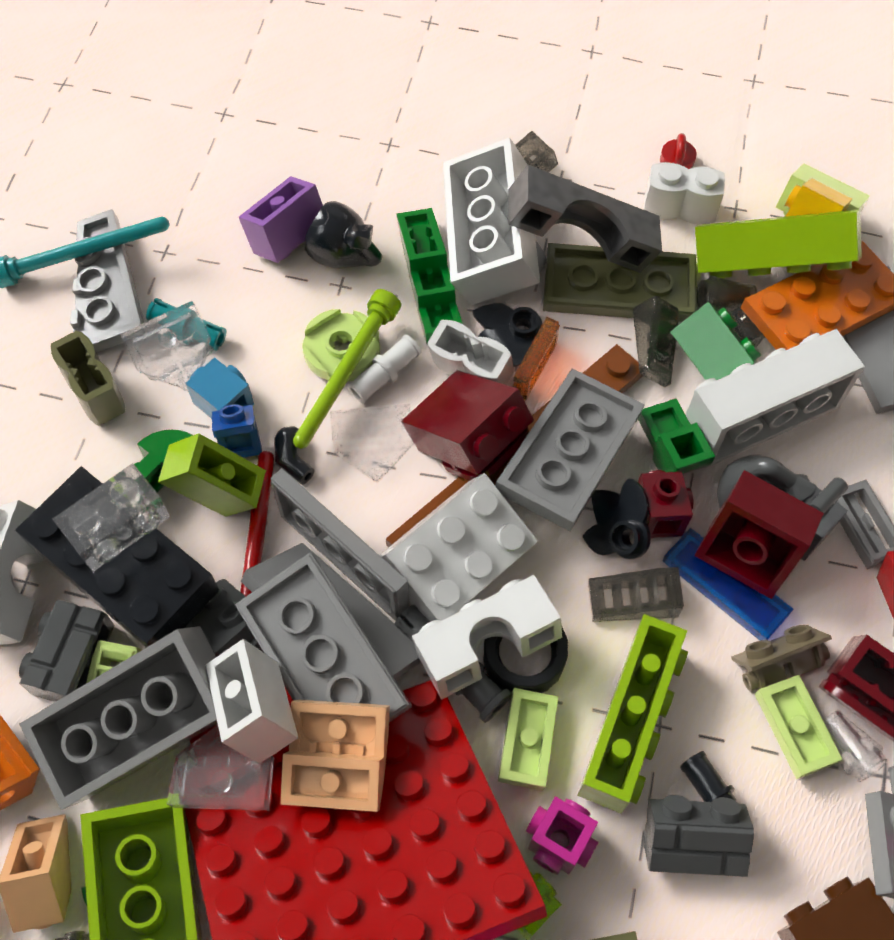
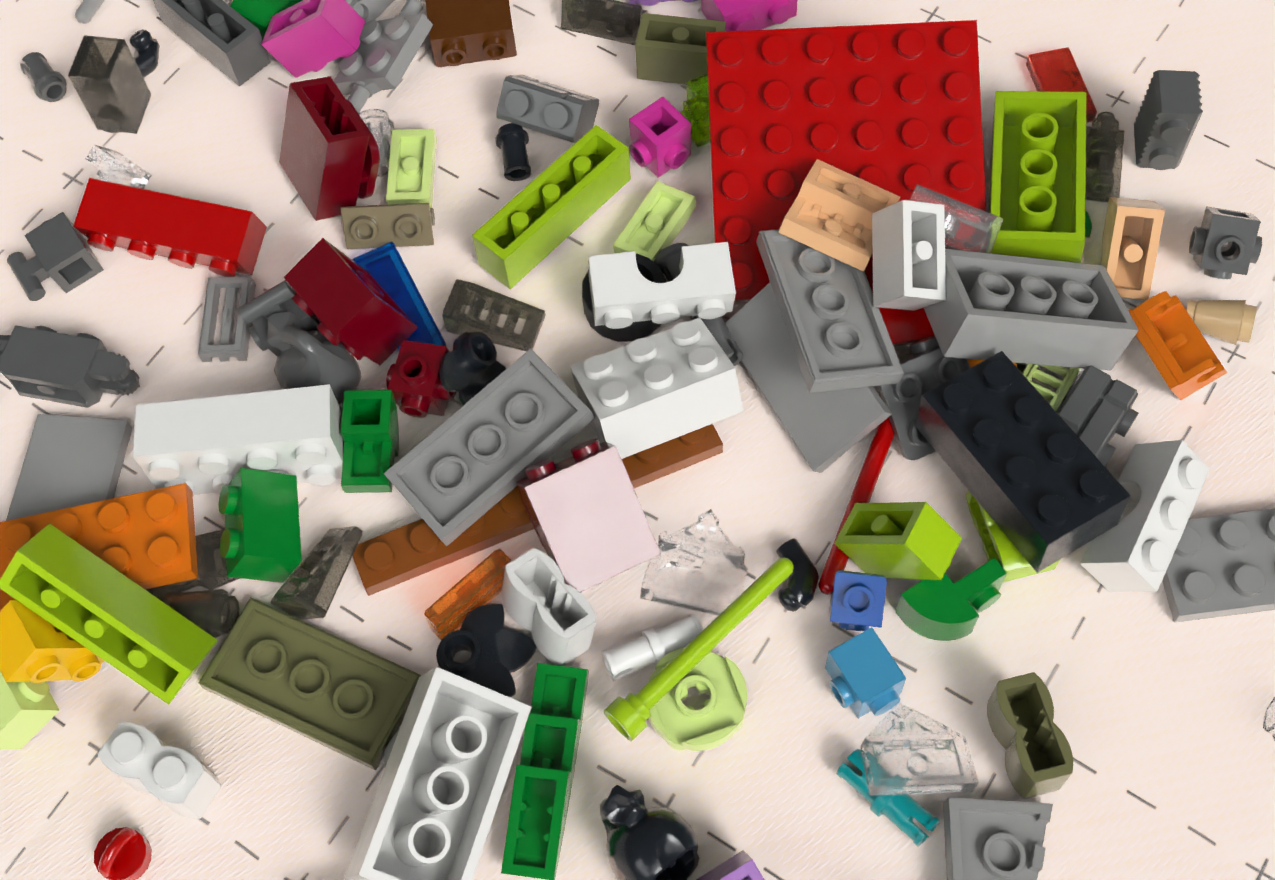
camera: 155 degrees left, 0 degrees up
(112, 517) = (1018, 440): clear brick -> none
(341, 545) = (780, 430): light grey tile -> none
(624, 231) = (370, 728): flat silver arch -> none

